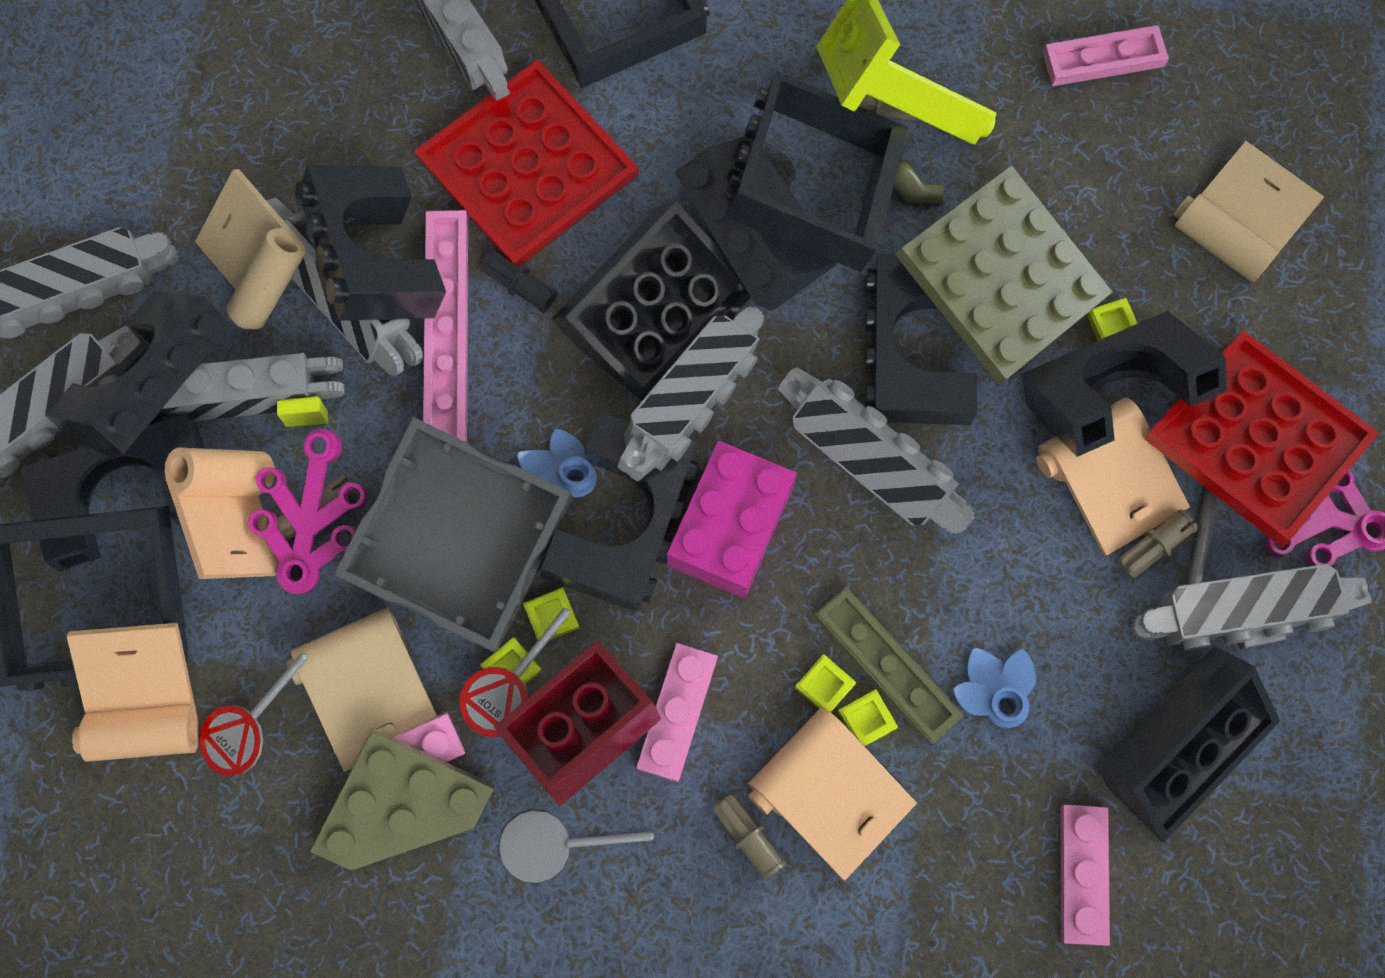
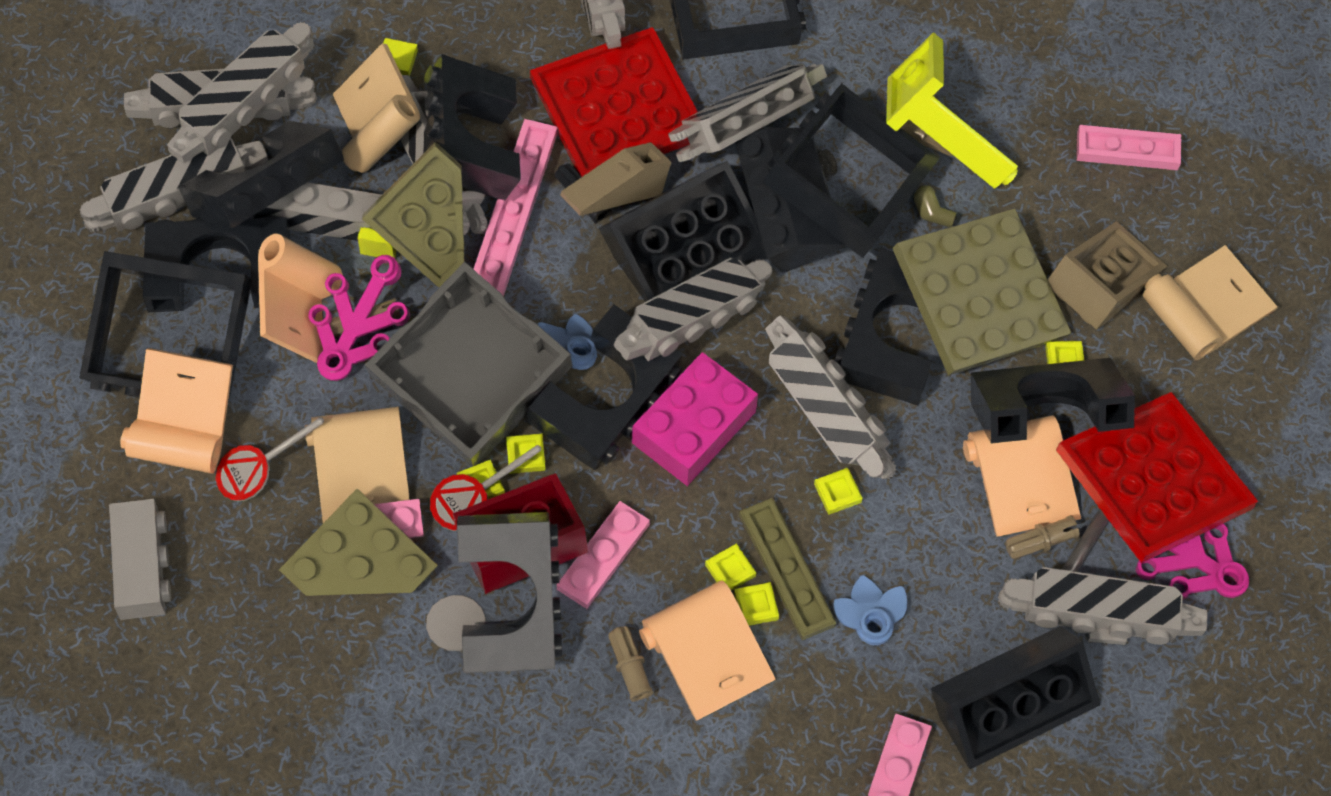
camera: 15 degrees right, 10 degrees down
(83, 275) = (241, 91): none -> light grey hinge
(139, 888) = (139, 559): none -> light grey brick
(261, 172) = (403, 54): none -> neon yellow tile
(347, 368) = (424, 215): none -> olive plate
(559, 257) = (623, 179): none -> dark tan slope
(594, 753) = (530, 640): none -> arch
(677, 131) = (747, 109): none -> light grey hinge
(915, 555) = (838, 491): none -> neon yellow tile
(1129, 213) = (1104, 274): none -> dark tan slope

